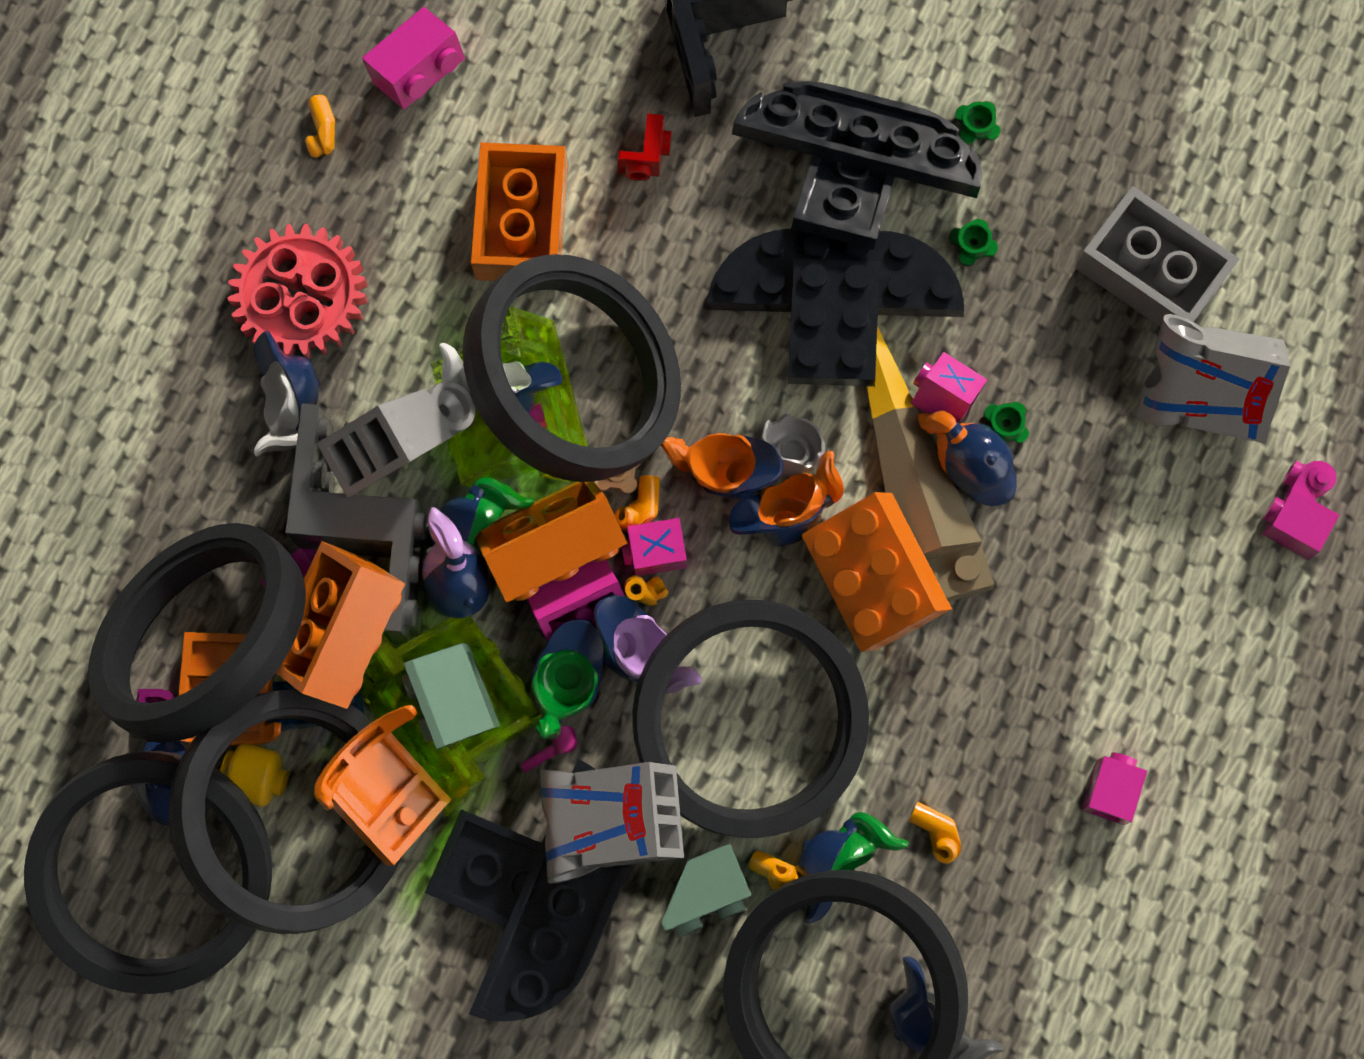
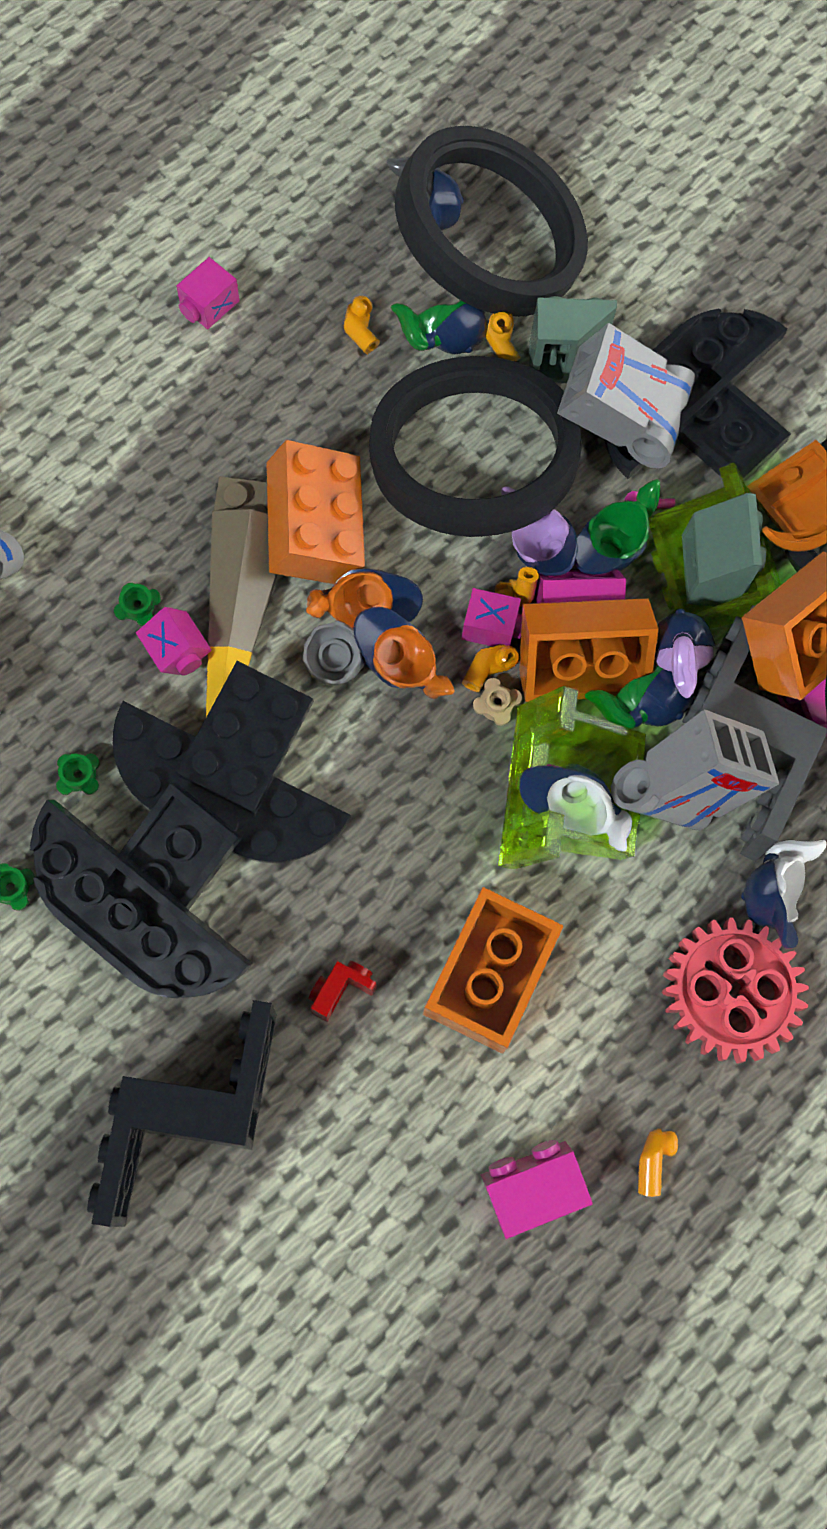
camera: 165 degrees left, 5 degrees down
(505, 413) = (579, 824): black tyre -> none
(973, 457) = (184, 580): dark blue hair -> none

